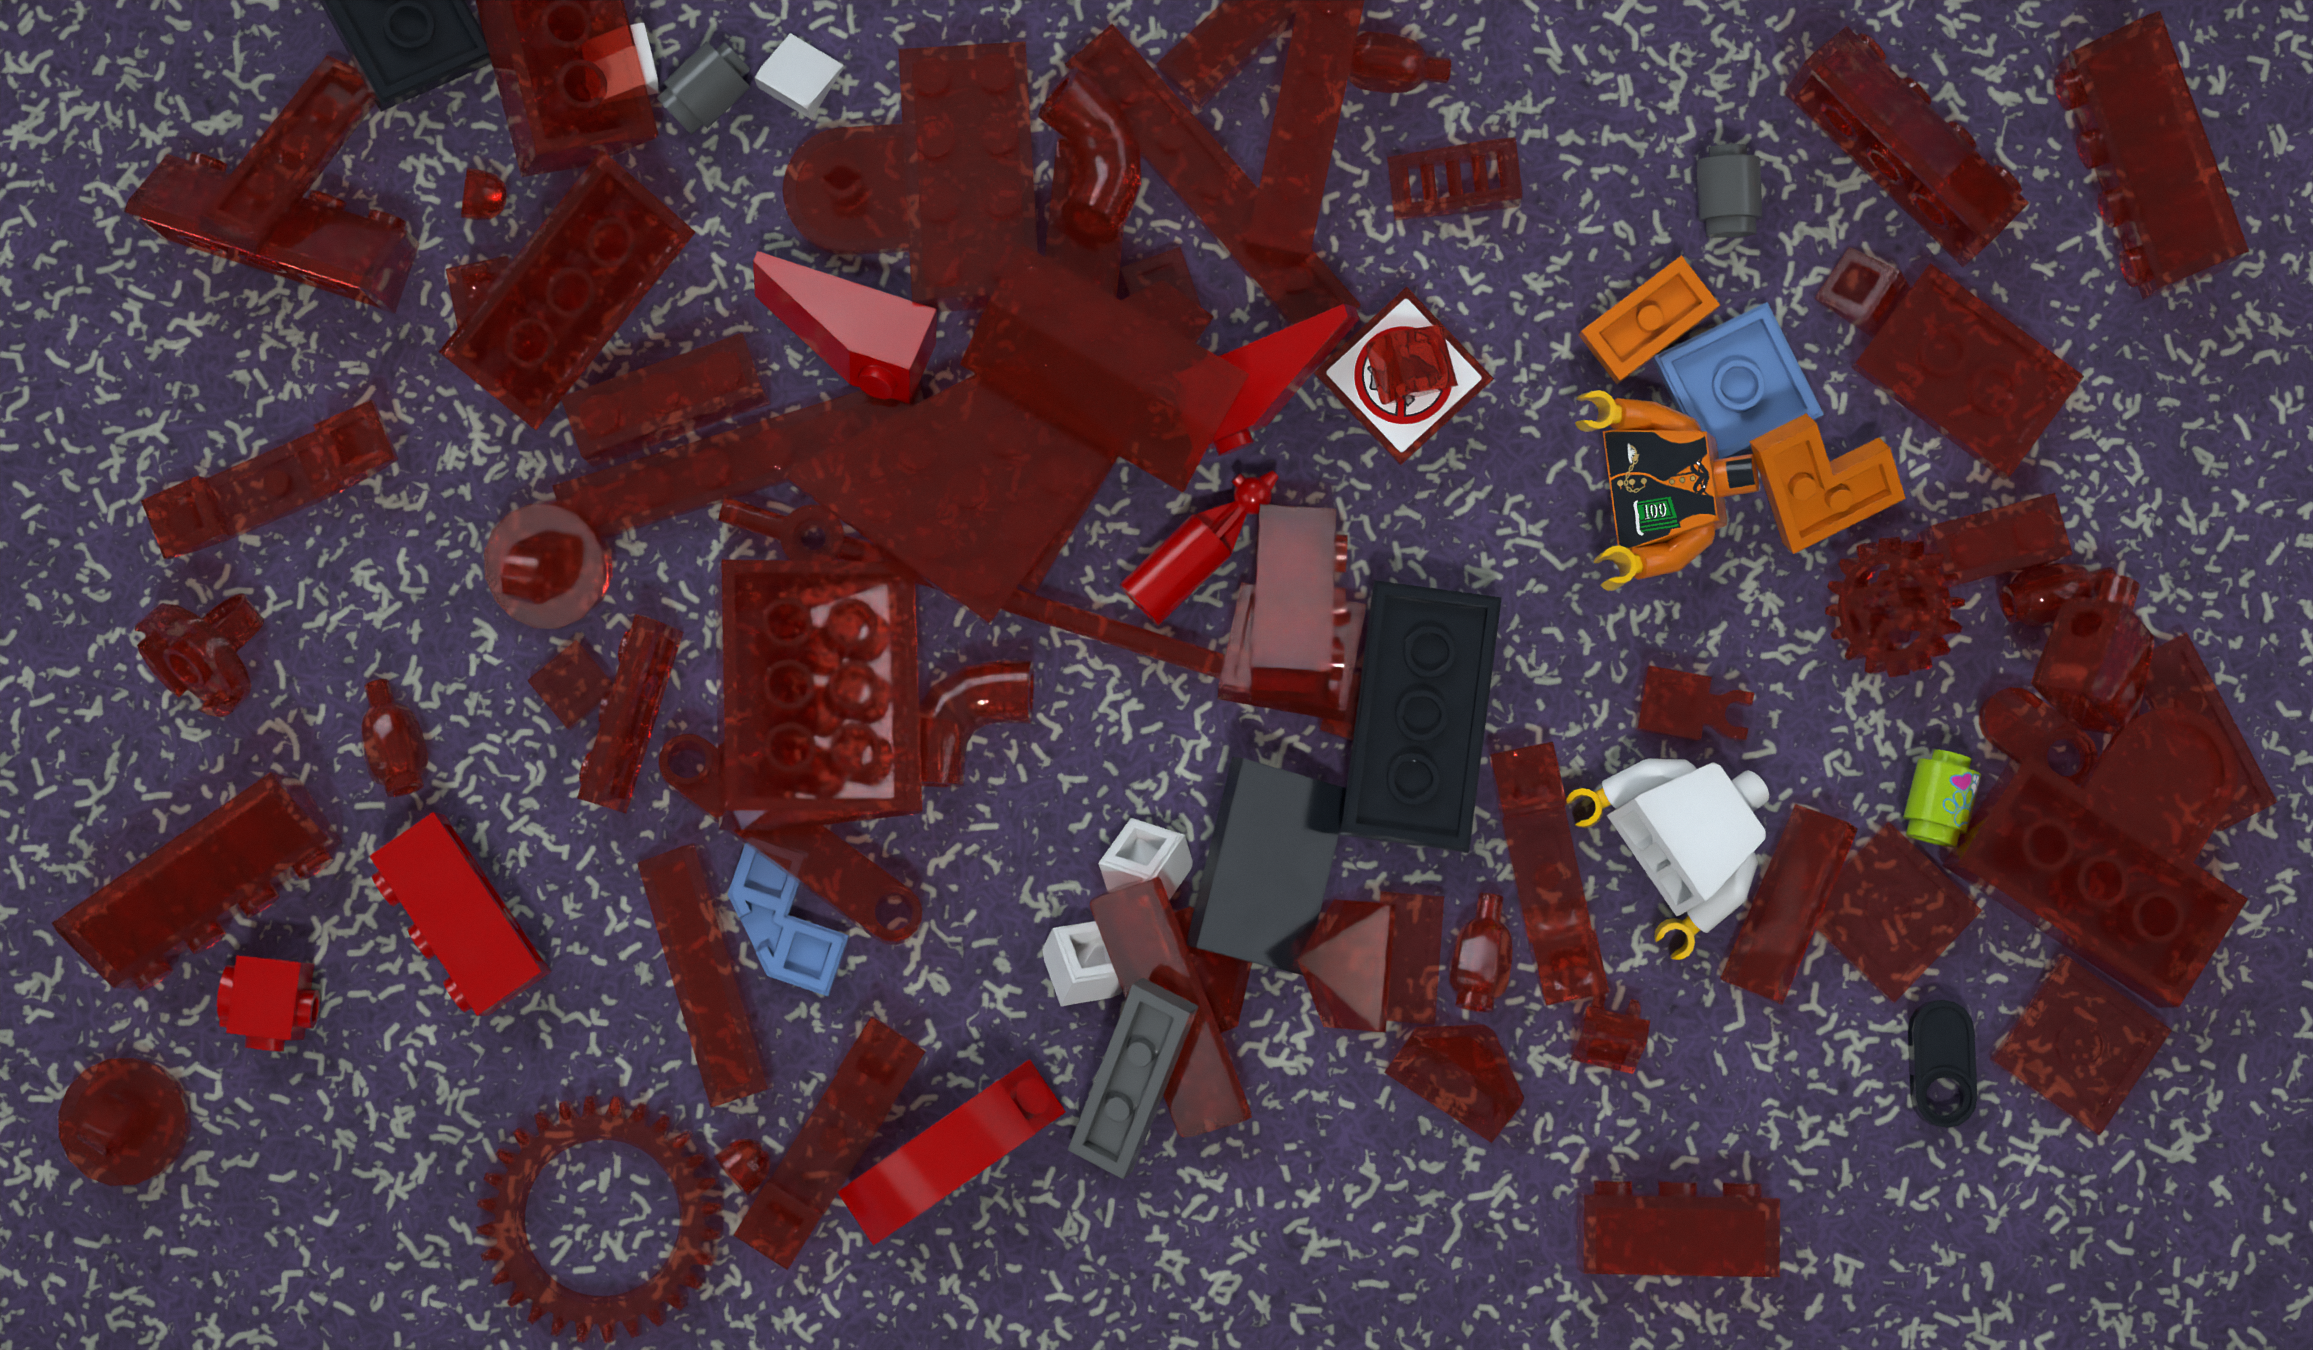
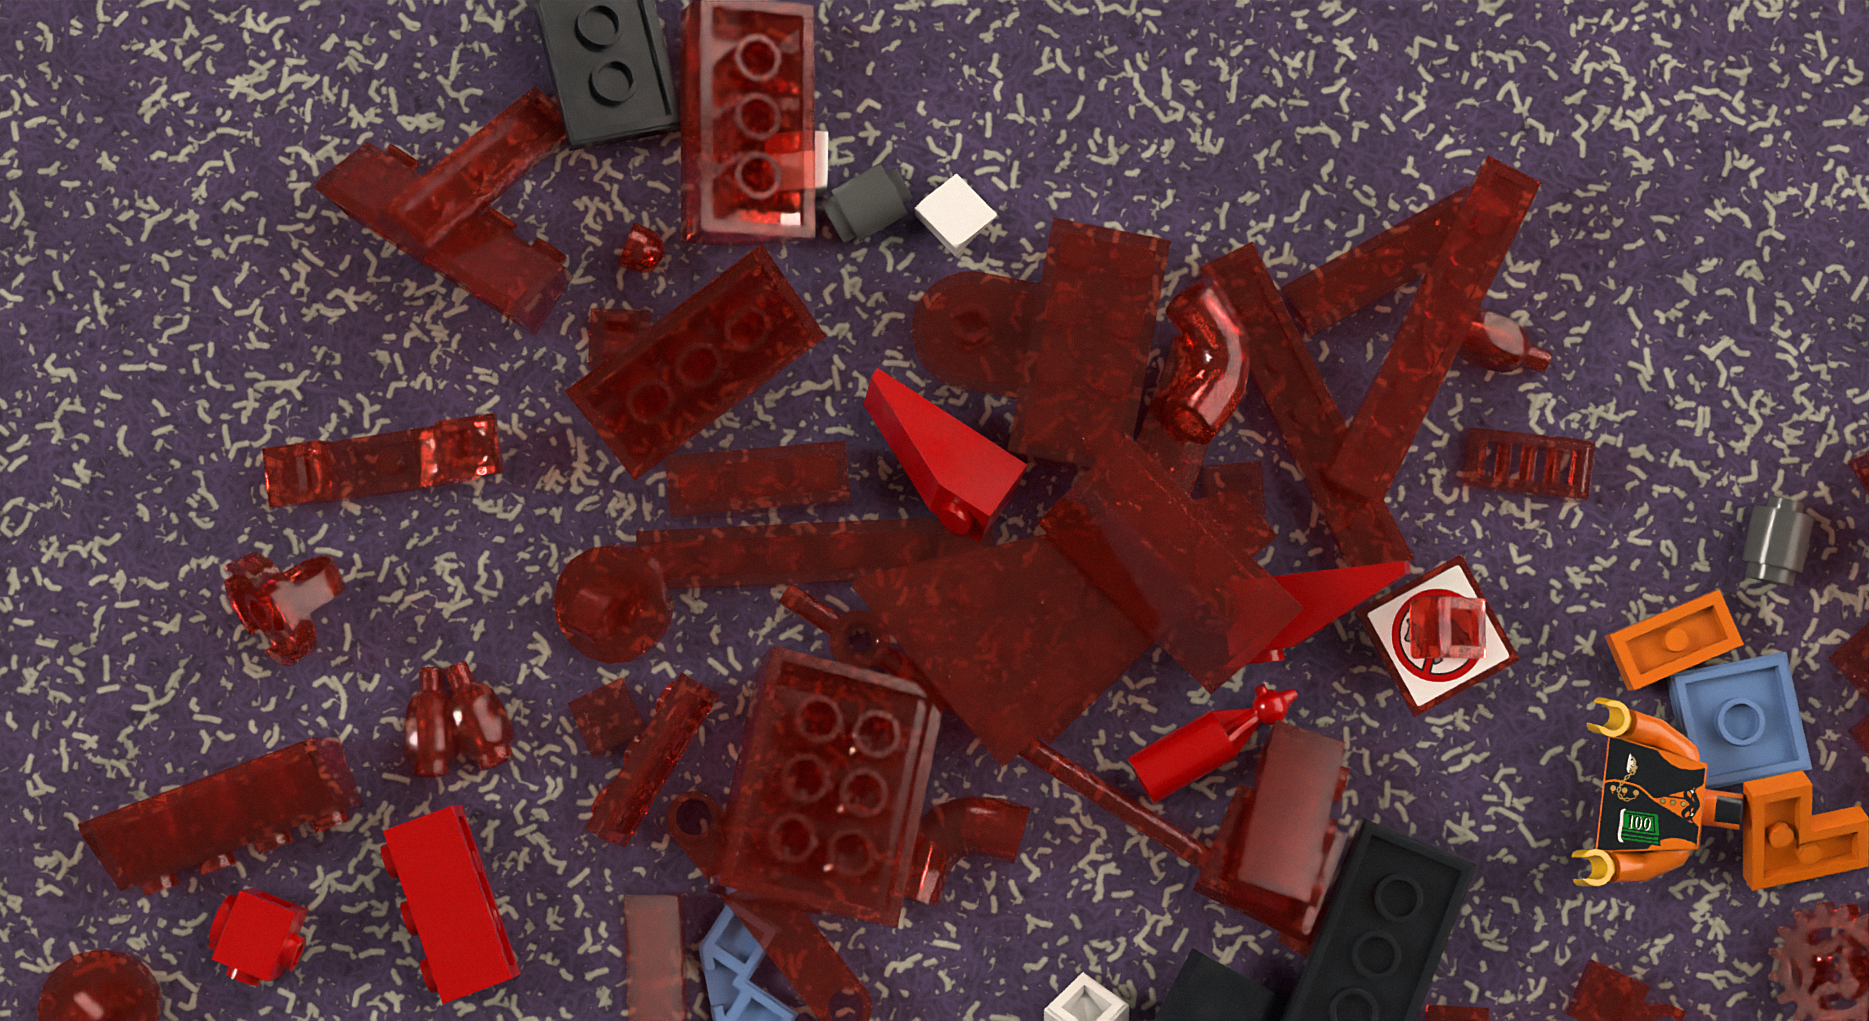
camera: 15 degrees right, 0 degrees up
(439, 720) = (478, 719): none -> clear red plant

